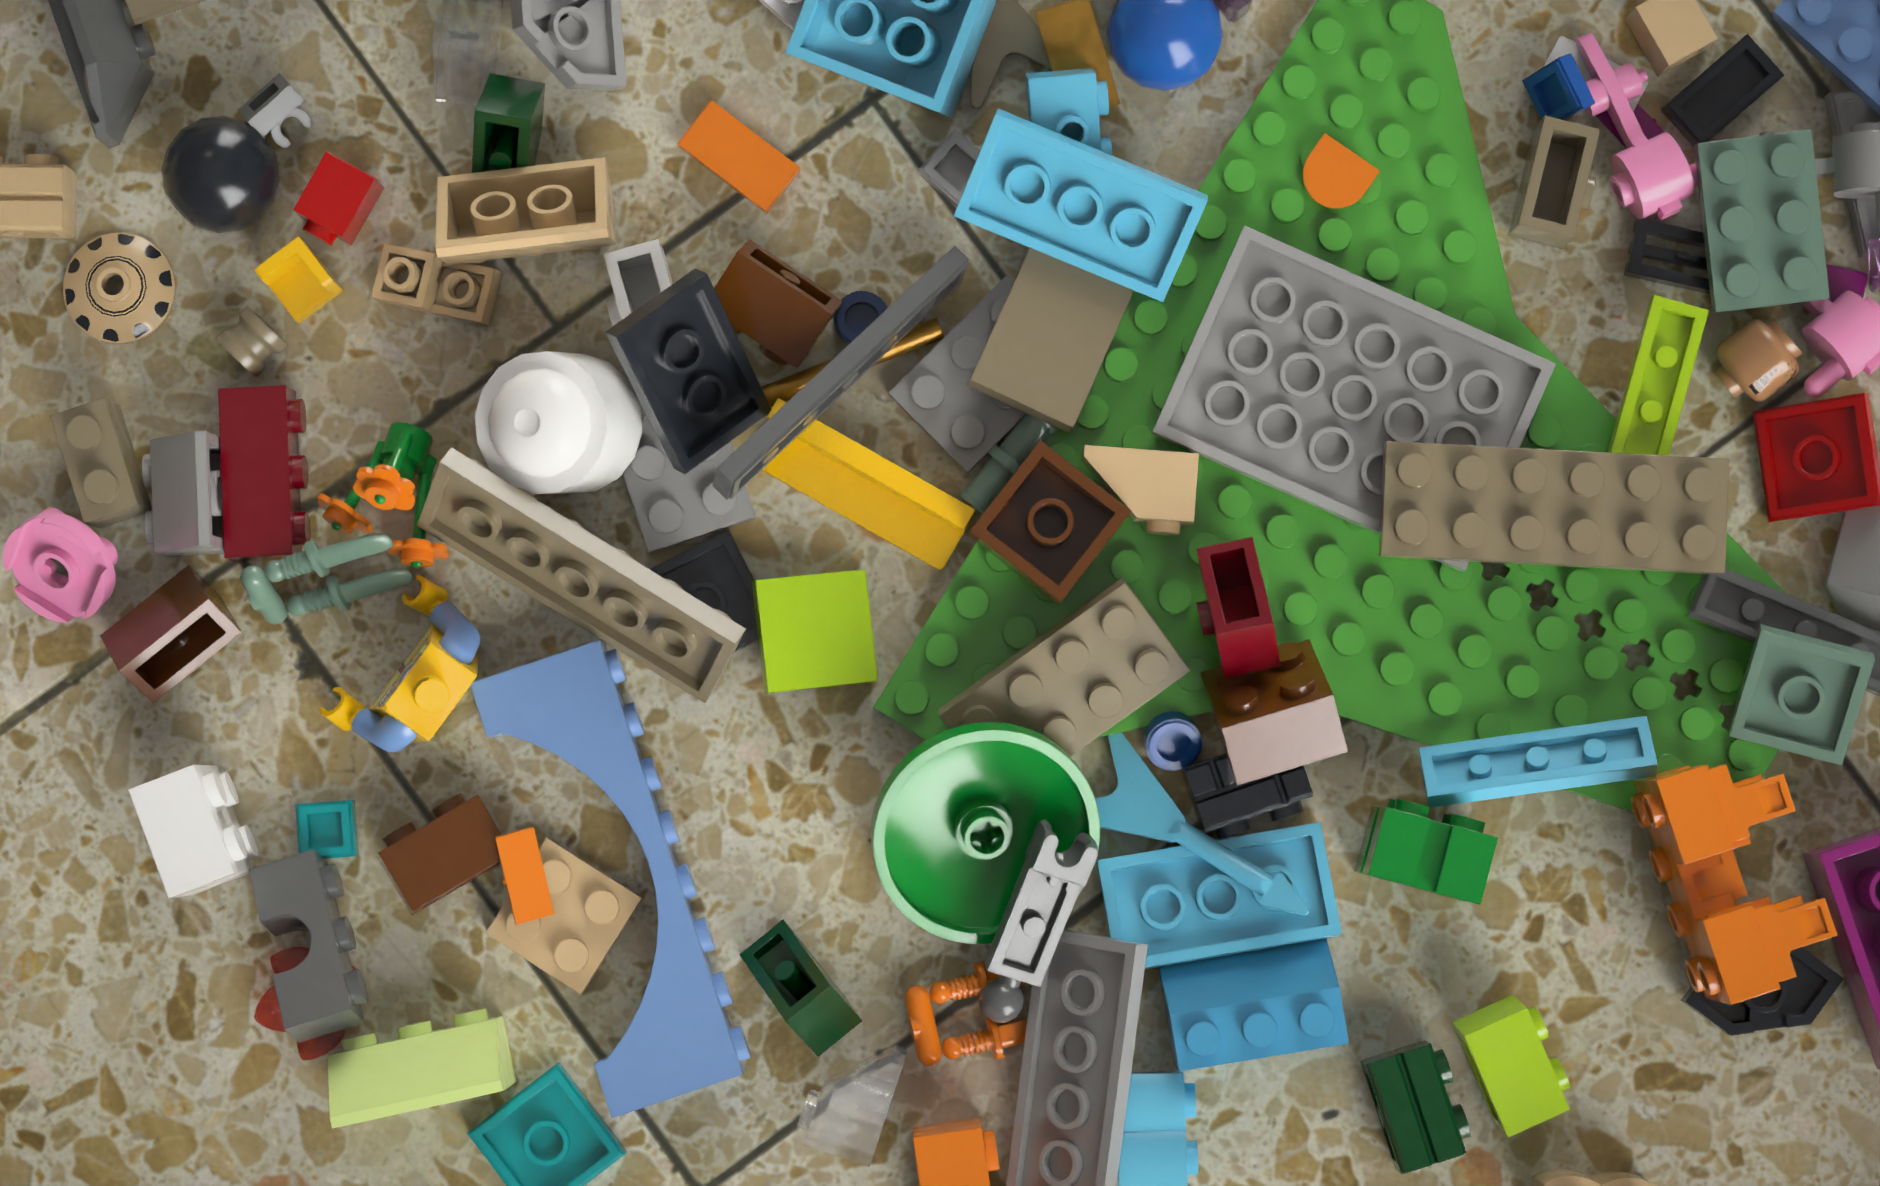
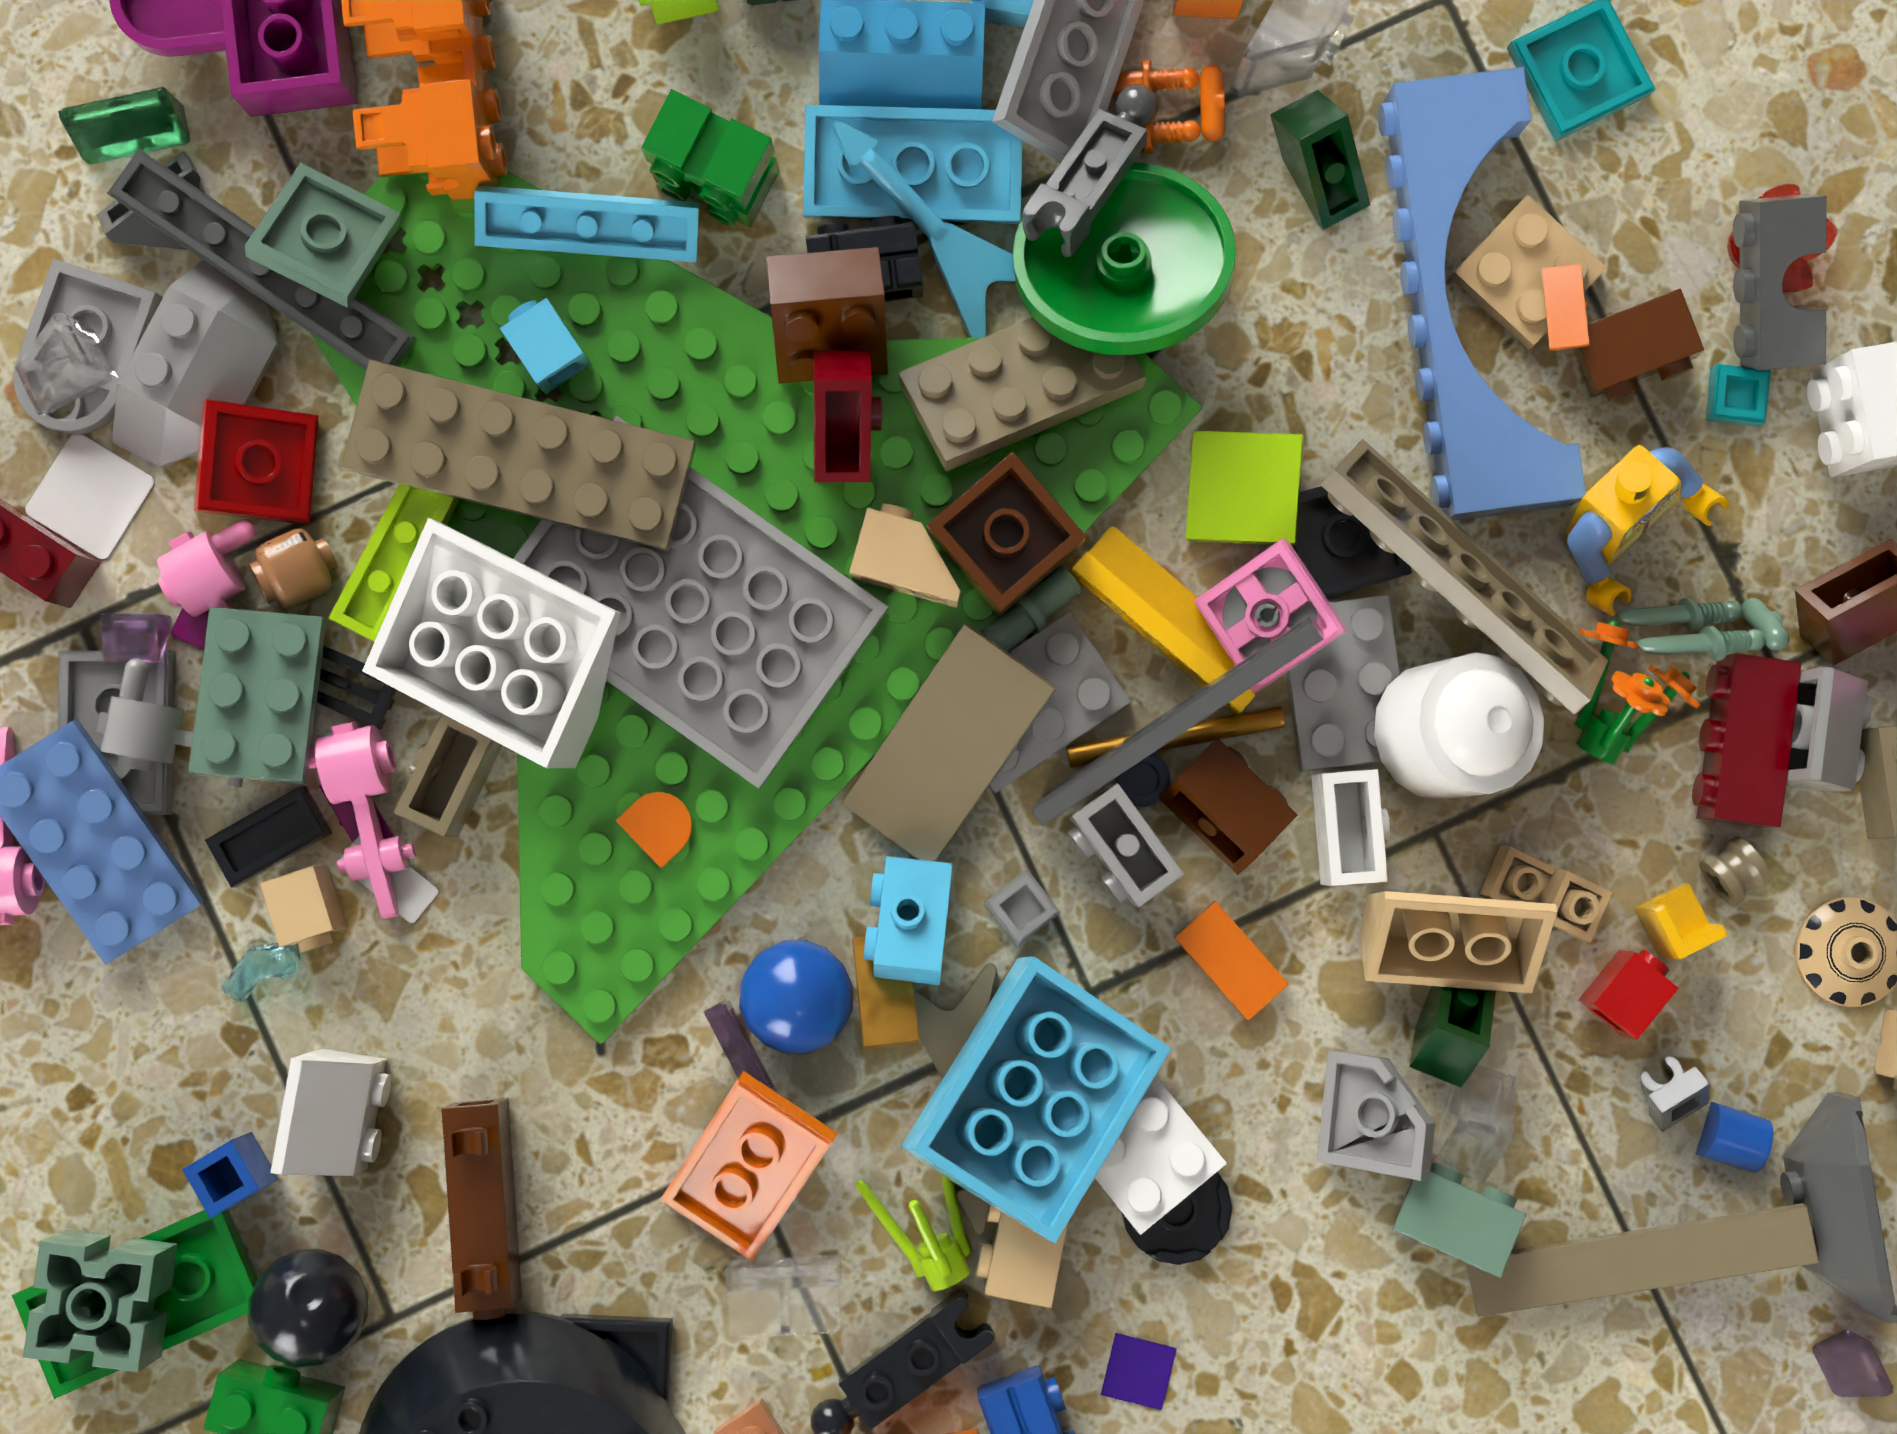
camera: 170 degrees left, 0 degrees up
(206, 81) = (1736, 1138): none -> blue brick
(220, 174) = (1742, 1038): black piece -> none
(419, 1068) = (1695, 145): yellowish green slope -> none
(689, 370) = (1327, 748): black plate -> none
(772, 513) = (1264, 603): none -> bright pink piece
(867, 243) = (1126, 847): none -> light grey brick
(1080, 205) = (913, 838): medium azure plate -> none
(1172, 740) = (926, 320): blue tile -> none
(1534, 308) = (497, 647): none -> white slope
(1554, 629) = (544, 344): none -> medium azure brick
(1559, 89) = (425, 865): blue tile -> none

